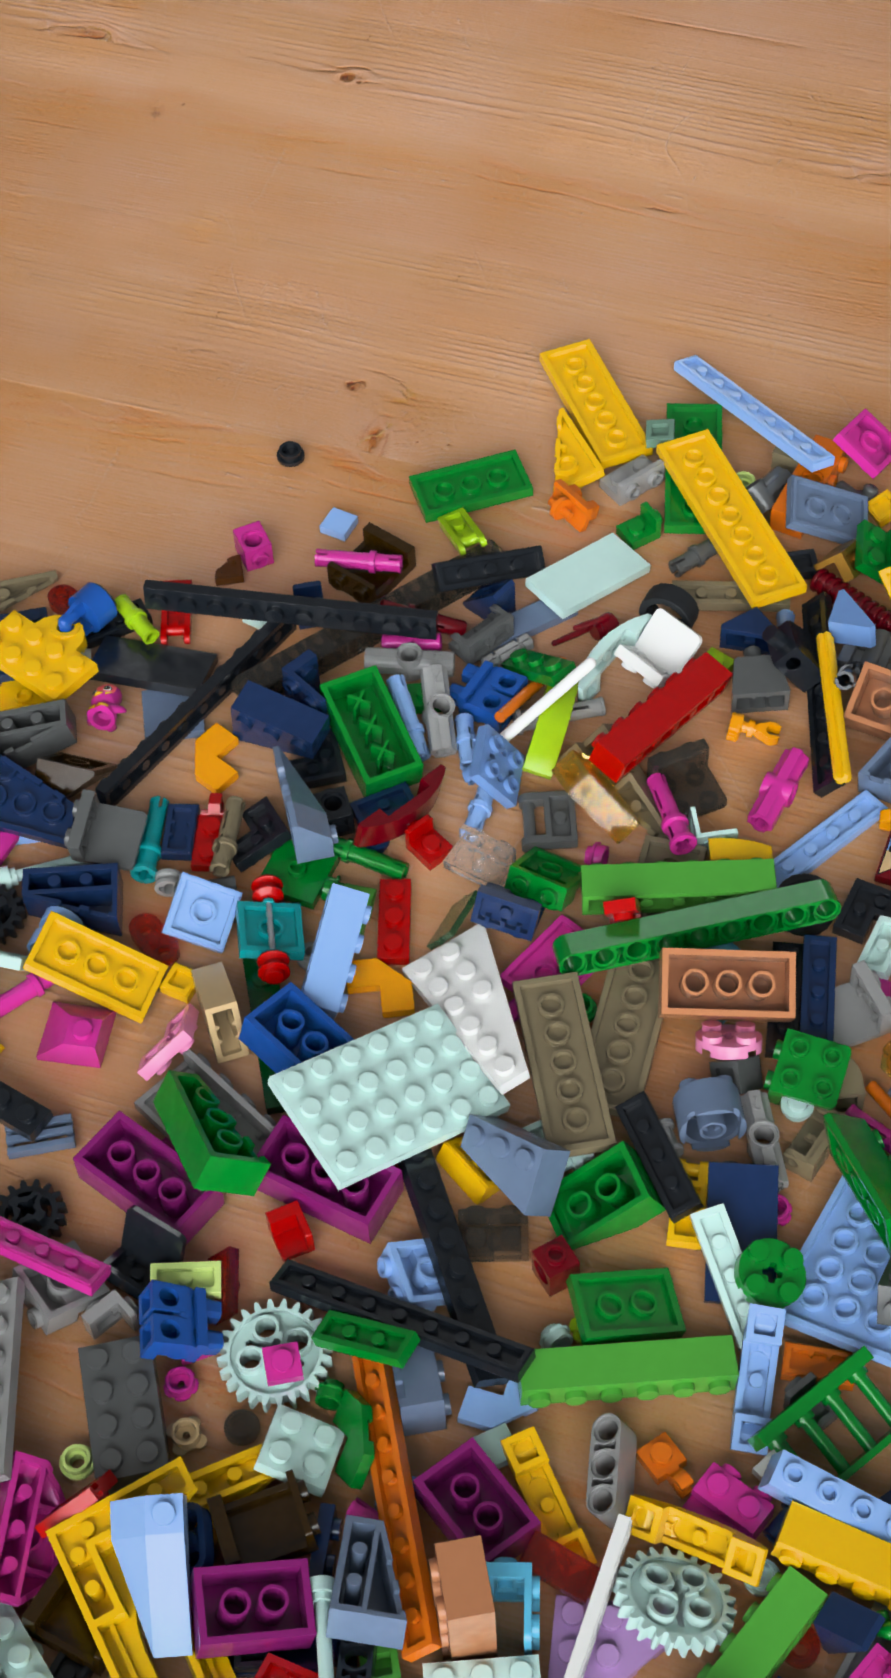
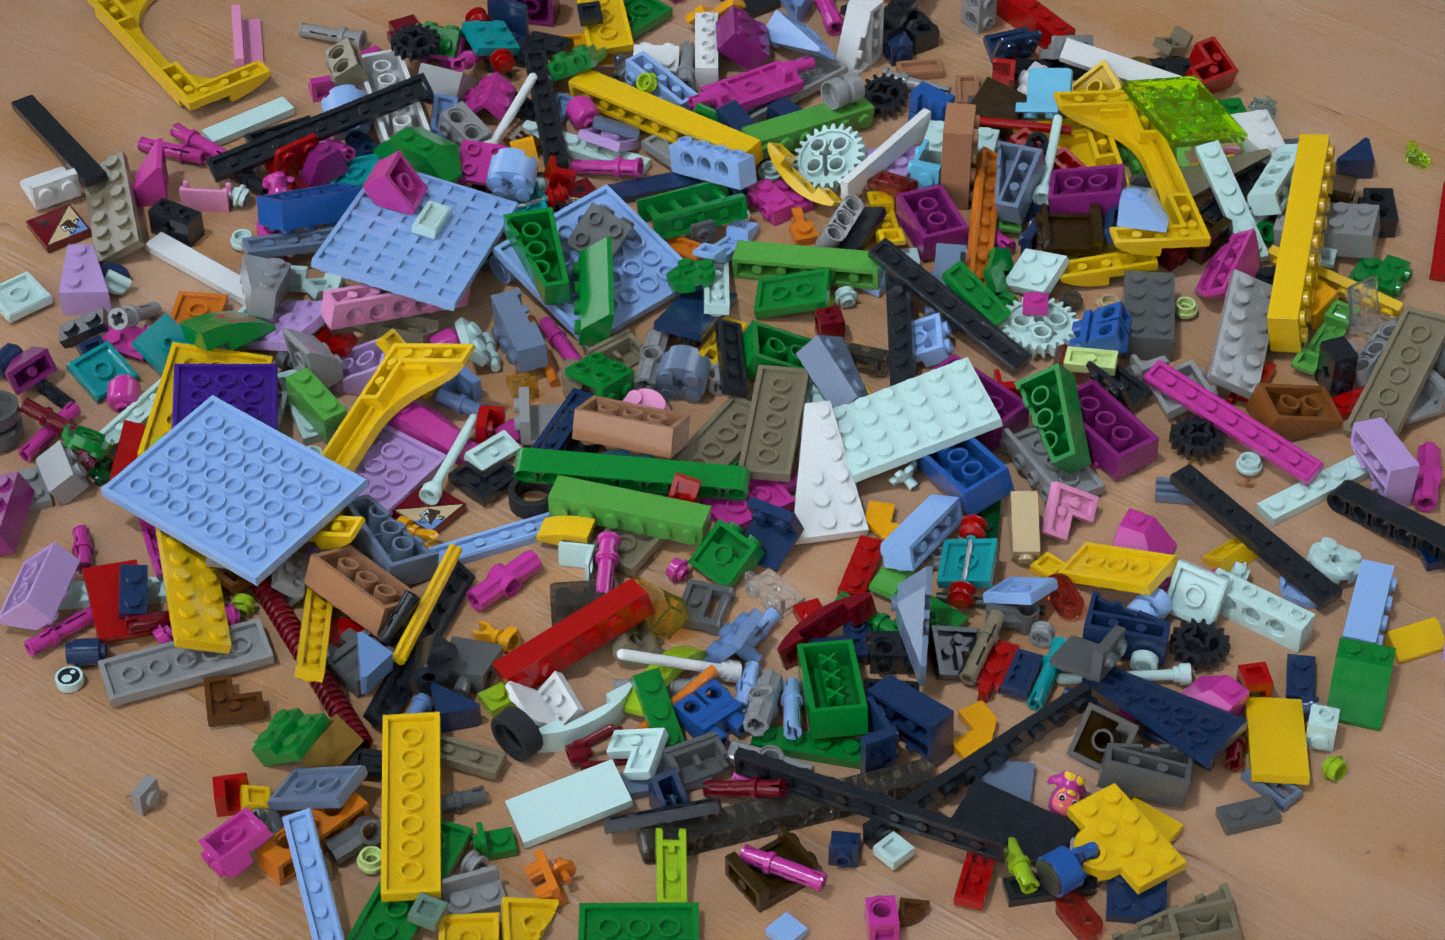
camera: 165 degrees left, 10 degrees down
(78, 1502) = (1188, 259): red plate -> none
(453, 920) = (816, 541): piece -> none
(538, 635) = (642, 748): none -> light aqua plate
(572, 1470) = (863, 228): none -> black tile
(646, 496) = (473, 862): none -> light grey bush

